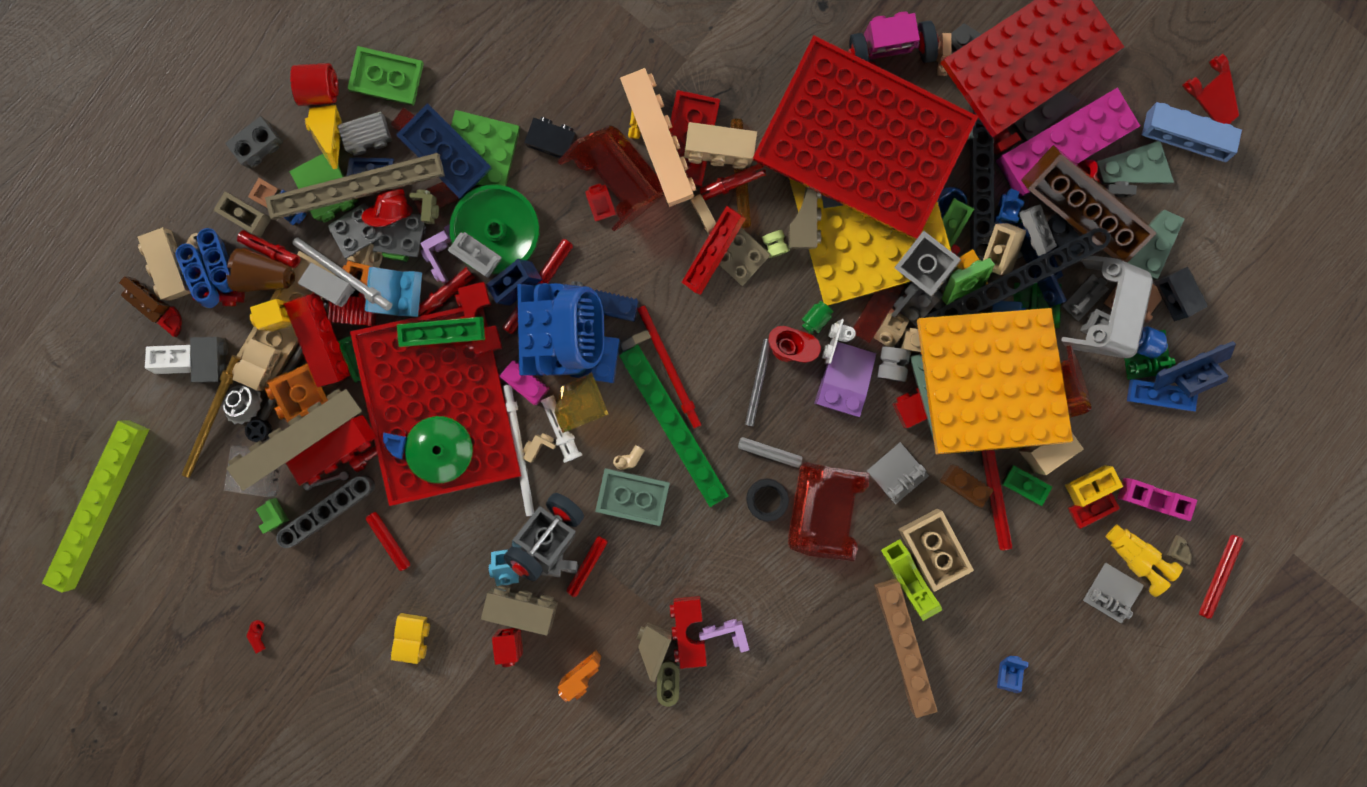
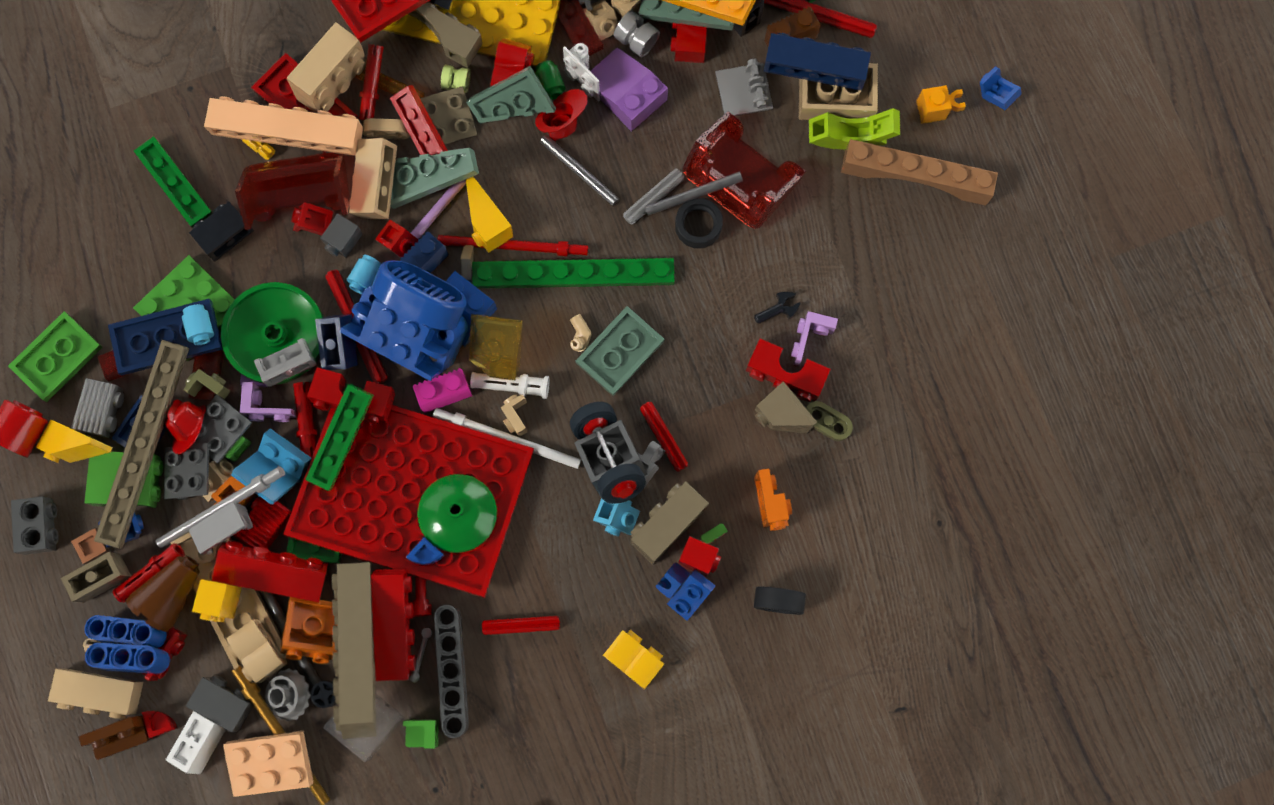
camera: 65 degrees left, 10 degrees down
(186, 420) = (268, 763): none -> light nougat plate
(463, 172) = (197, 324): none -> medium azure brick
(476, 649) = (686, 590): none -> blue plate
(510, 723) = (779, 600): none -> black tyre
(532, 645) = (713, 534): none -> bright green tile
(568, 77) = (173, 181): none -> green plate
(580, 268) = (363, 273): none -> medium azure brick
(598, 233) = (341, 236): none -> dark grey brick
(621, 277) = (396, 238): none -> red bracket
(655, 290) = (437, 209): none -> lavender bar
(656, 230) = (373, 178): none -> tan brick
(674, 337) = (488, 222): none -> yellow slope
(679, 265) = (430, 173): none -> sand green wing
(723, 589) = (778, 308): none -> black bar
(785, 299) = (511, 97): none -> sand green wing
(786, 485) = (694, 193): none -> flat silver bar
(807, 283) = (510, 59): none -> red brick
(945, 524) = (817, 61): none -> dark blue brick
(971, 632) = (936, 103): none -> light orange brick

